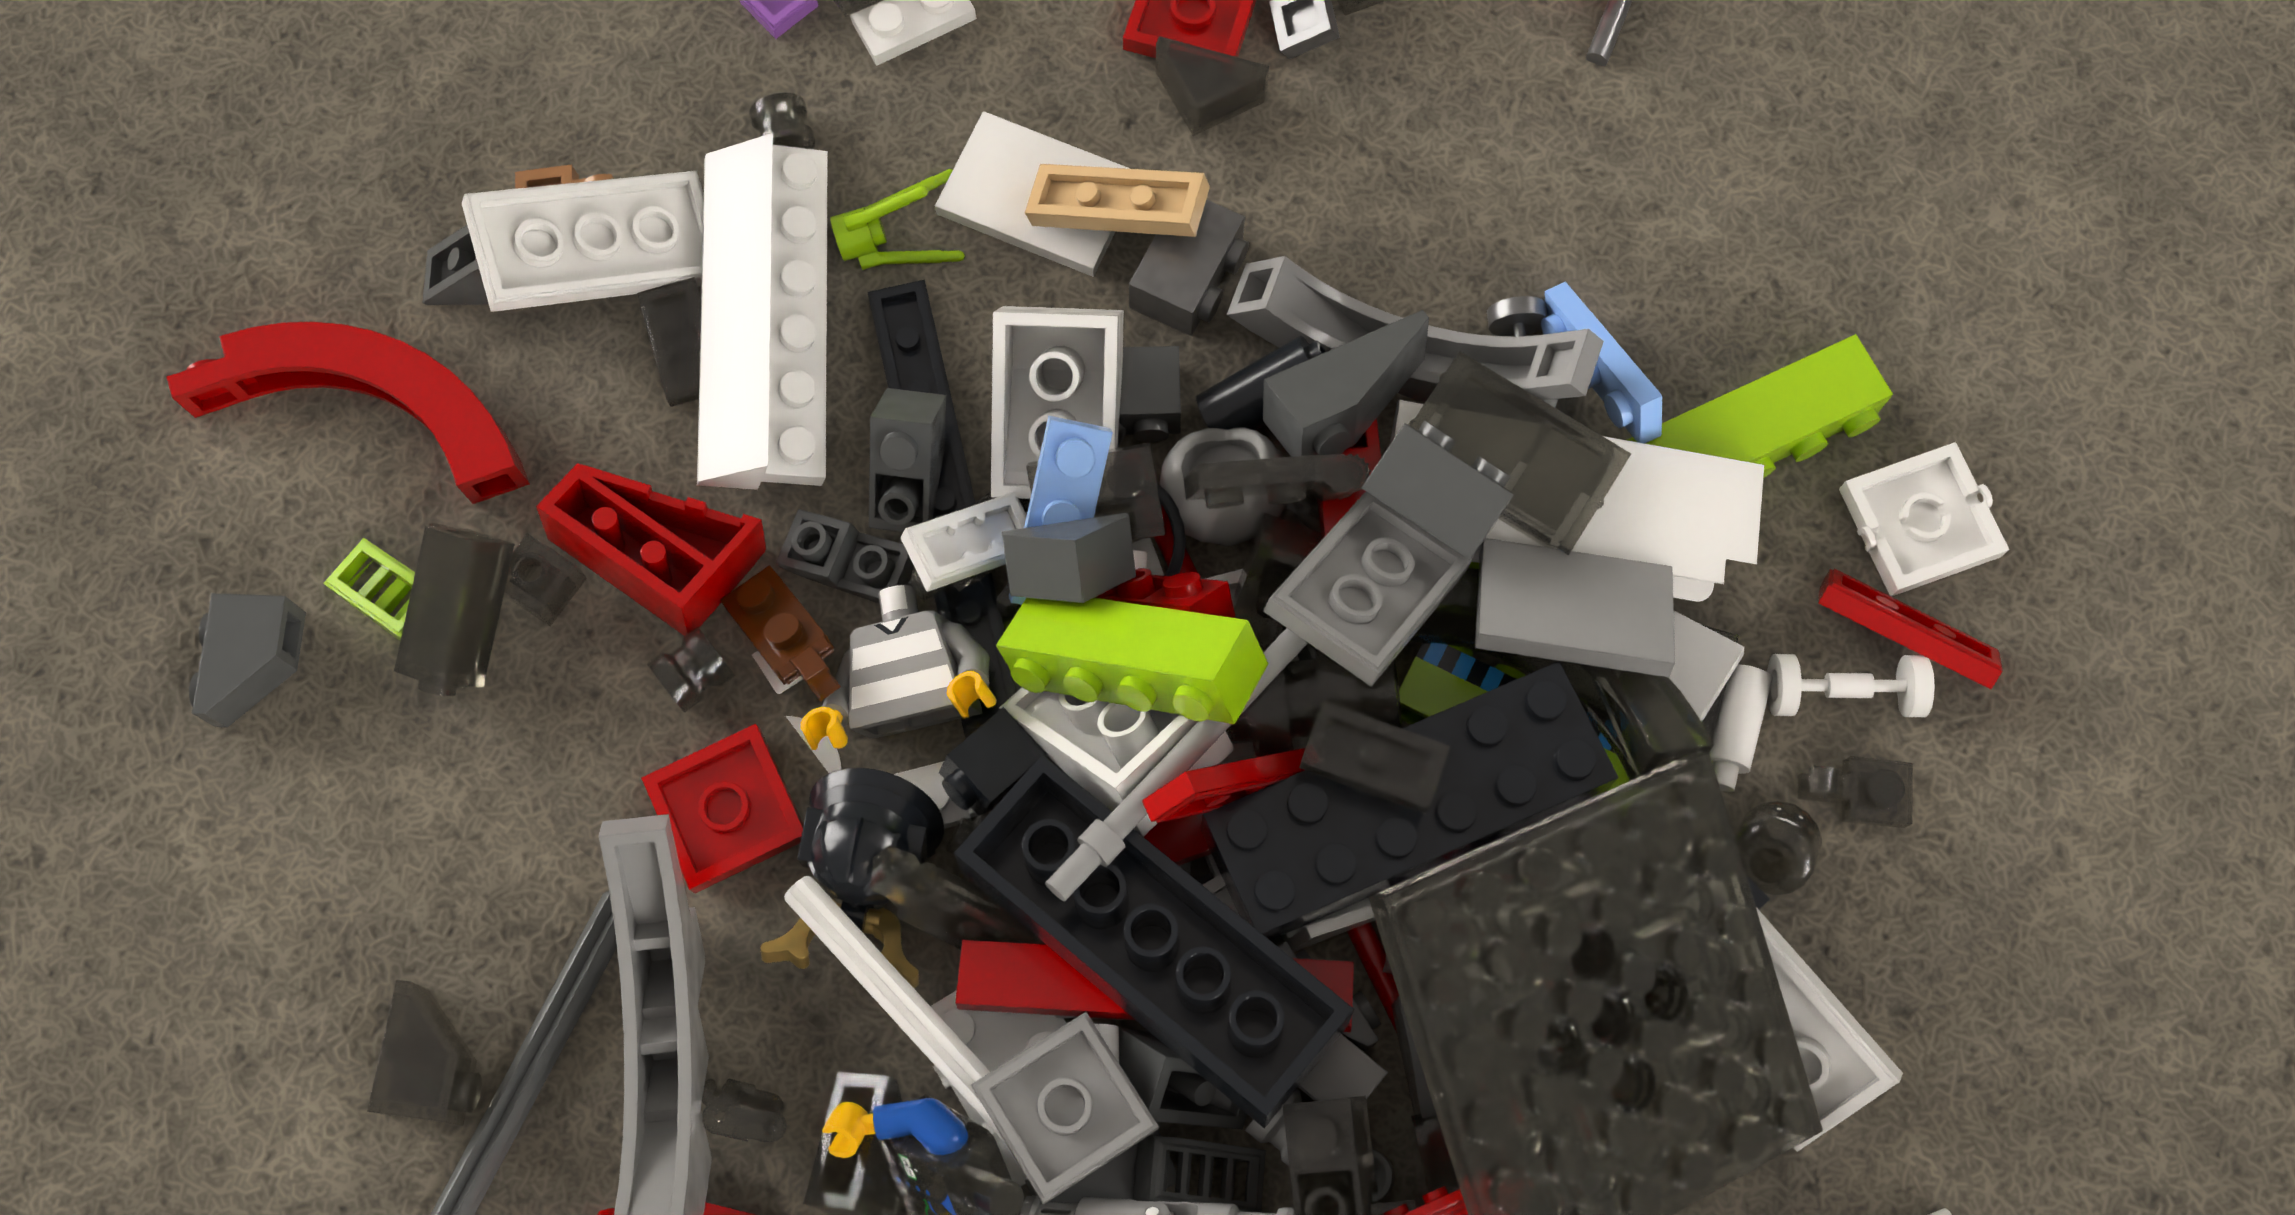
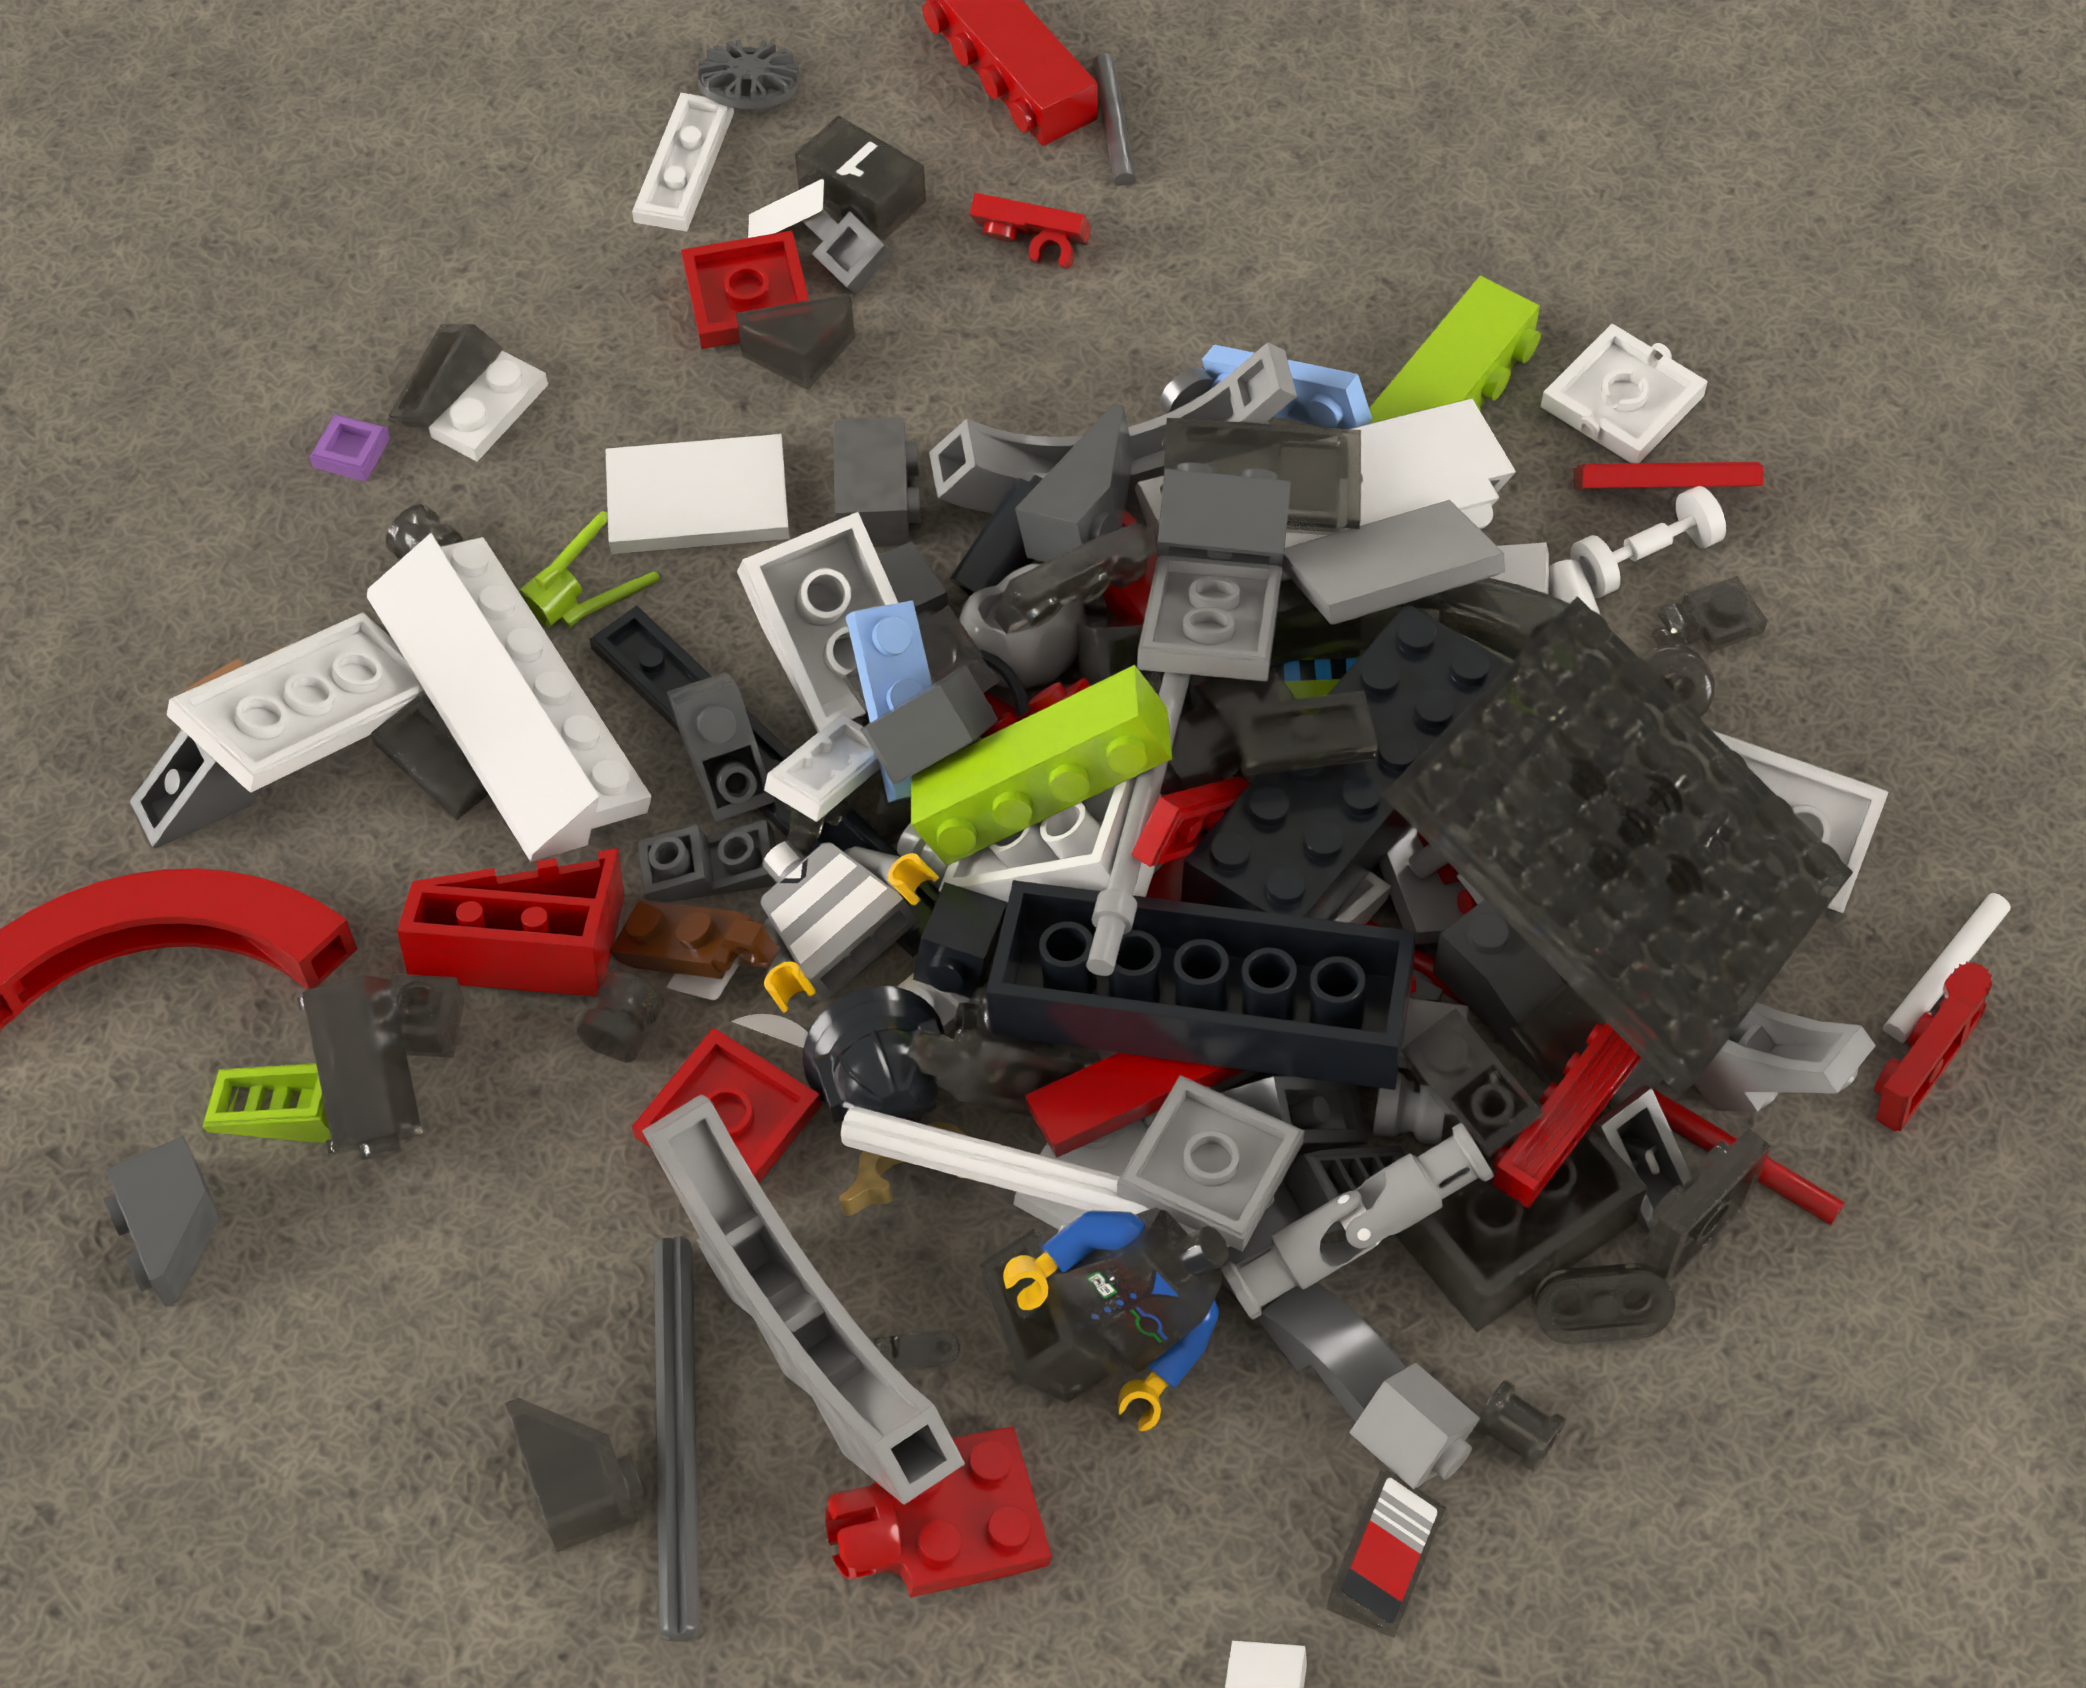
camera: 30 degrees left, 15 degrees down
(1118, 199) = (782, 451): tan plate -> none
(1460, 51) = (1006, 218): none -> red plate

